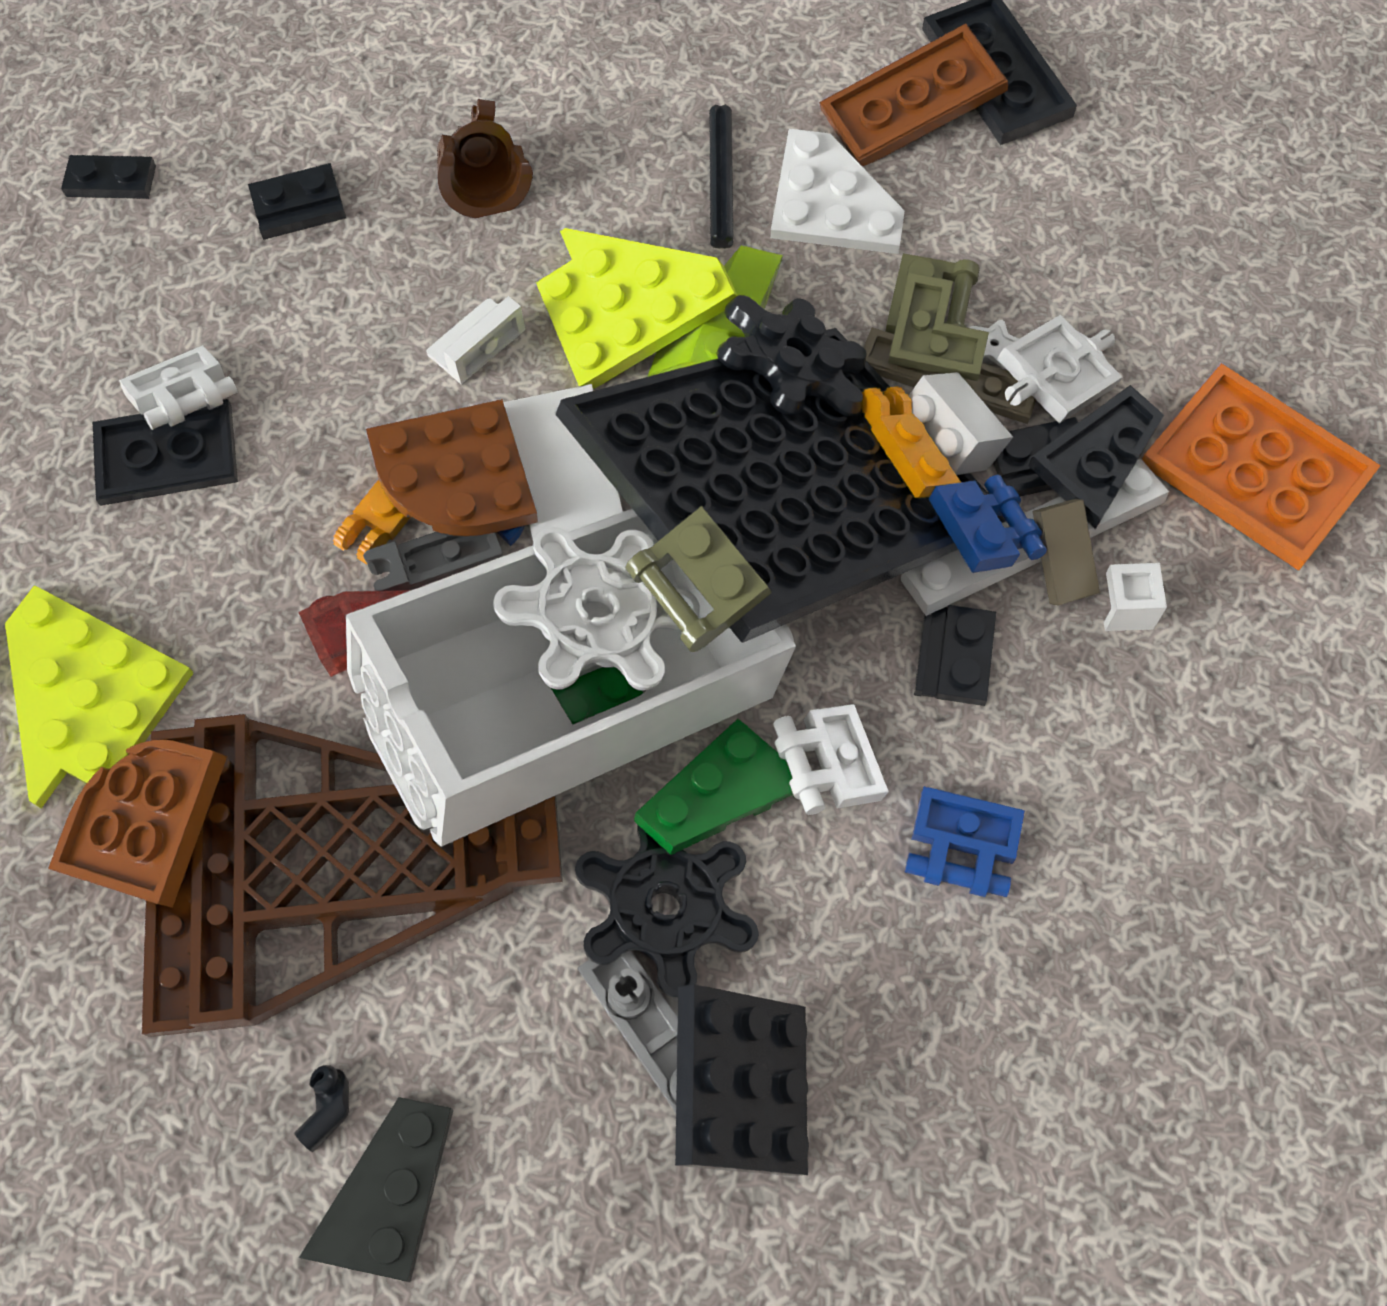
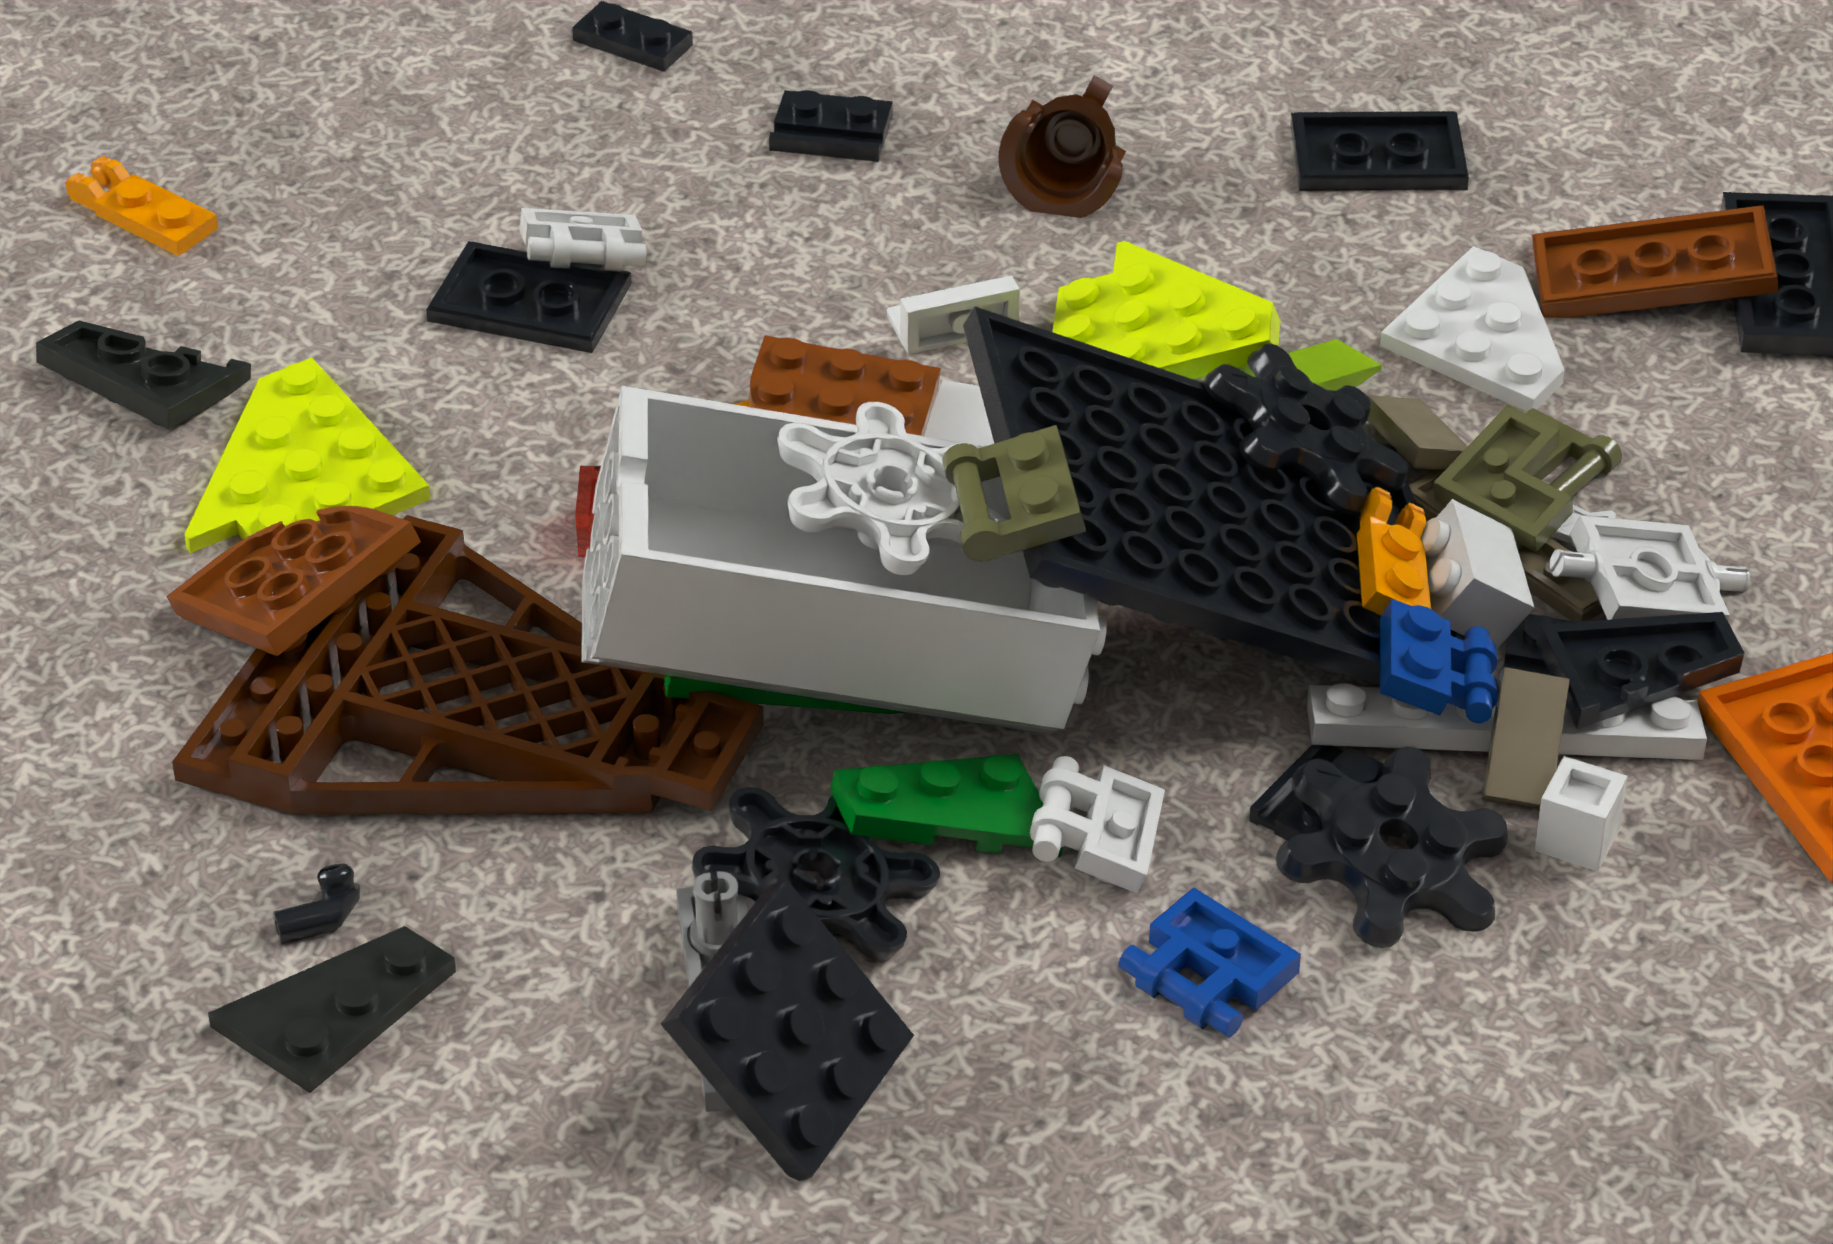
camera: 25 degrees right, 25 degrees down
(679, 69) = (1378, 151): none -> black tile
(721, 177) = (1356, 266): black axle -> none
(847, 310) = (1415, 432): none -> dark tan tile
(1005, 700) = (1386, 879): none -> black plate

